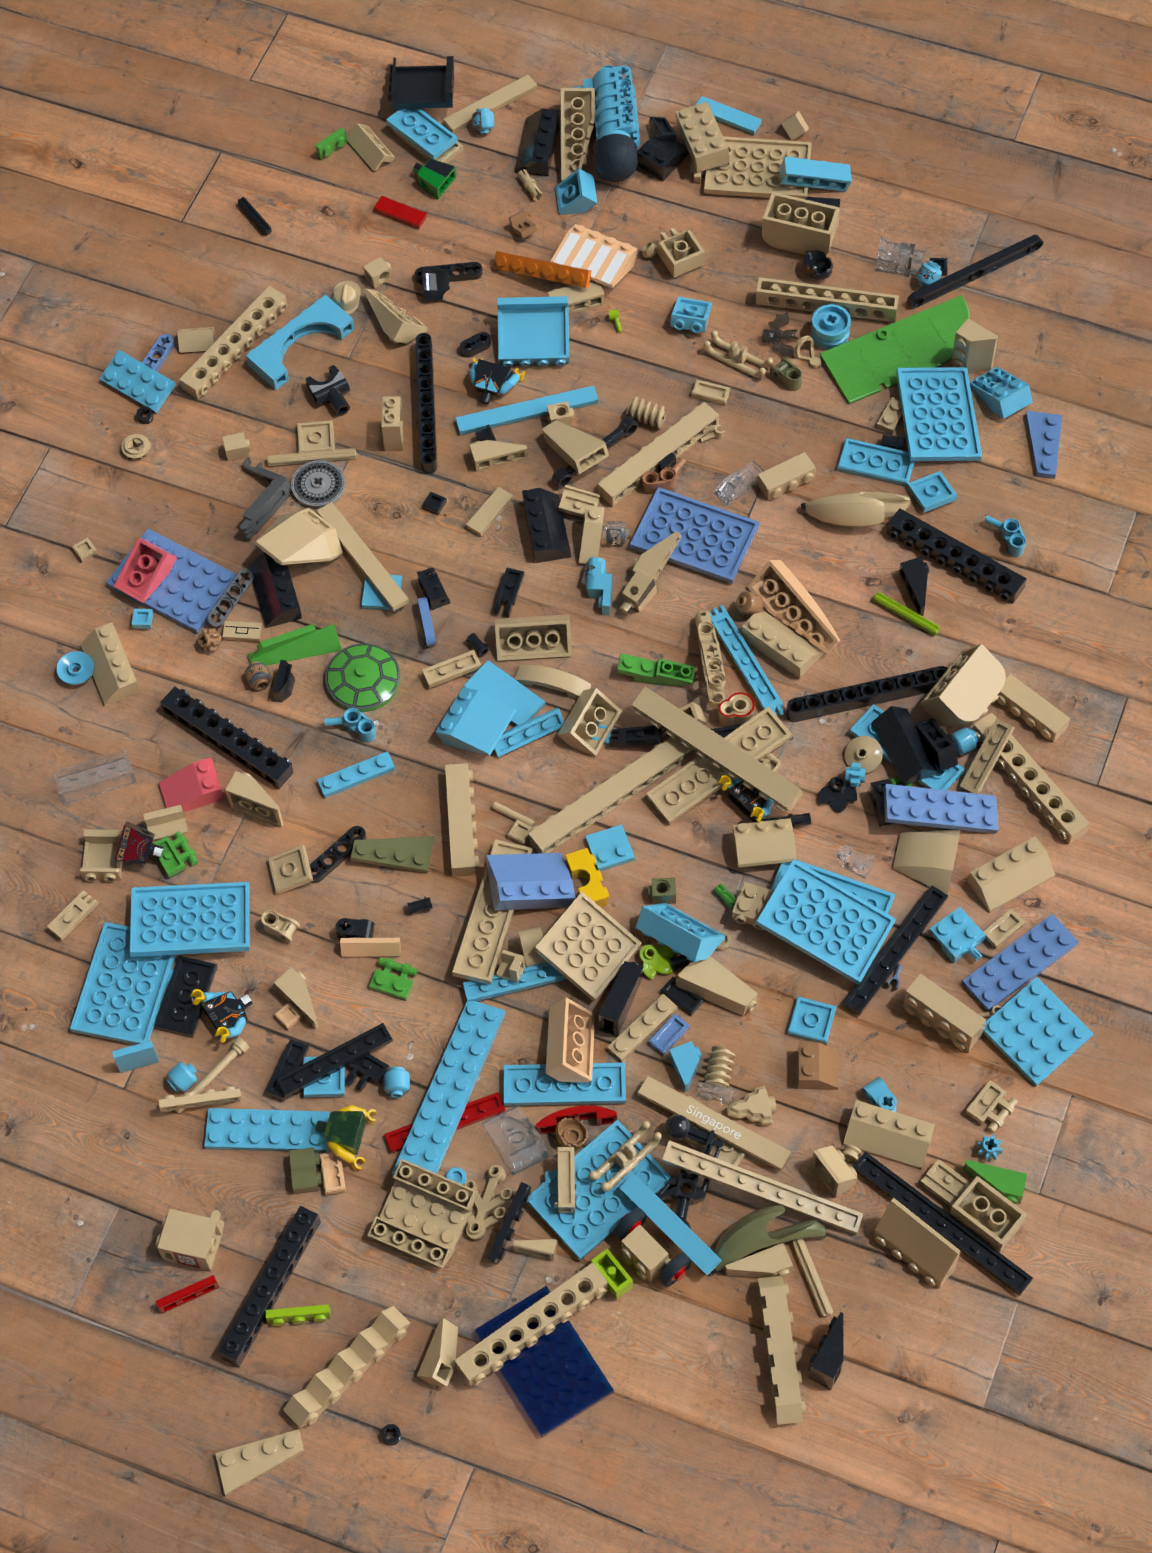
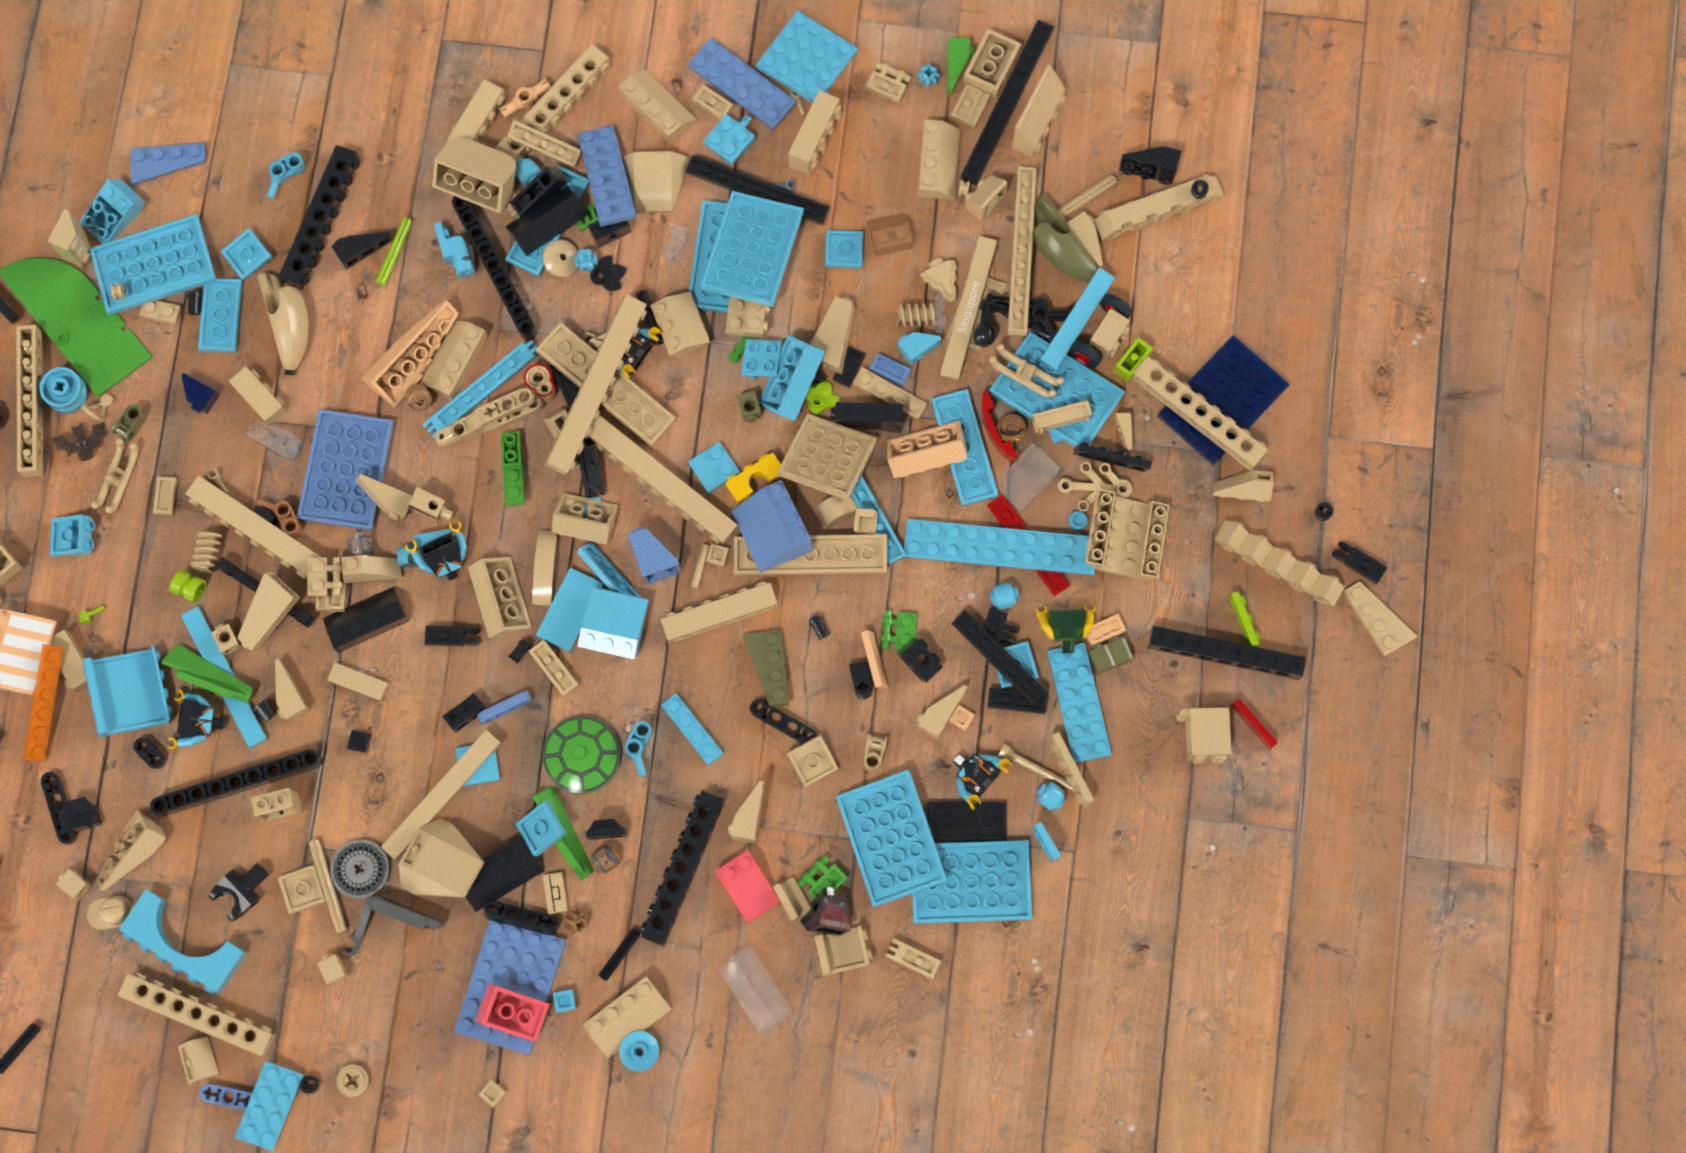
camera: 105 degrees left, 15 degrees up
(167, 670) = (619, 954): none -> black axle
(300, 622) = (541, 828): none -> medium azure plate
(322, 1456) = (1360, 563): none -> black hinge
(345, 986) = (910, 653): none -> black brick
(530, 392) = (206, 675): none -> bright green wedge
(533, 767) = (652, 557): none -> medium blue slope
(584, 591) = (441, 555): none -> torso
(592, 489) = (317, 577): none -> tan plate
(616, 394) = (185, 585): none -> lime wheel
(709, 910) = (761, 358): none -> medium azure hinge
(778, 1390) = (1195, 194): none -> black bush
(801, 430) = (198, 395): none -> clear blue slope
(879, 1094) = (903, 176): medium azure piece -> none
(894, 662) = (456, 251): none -> medium azure plate
(913, 376) = (117, 291): none -> tan bush
(1042, 747) = (531, 92): none -> light nougat pin

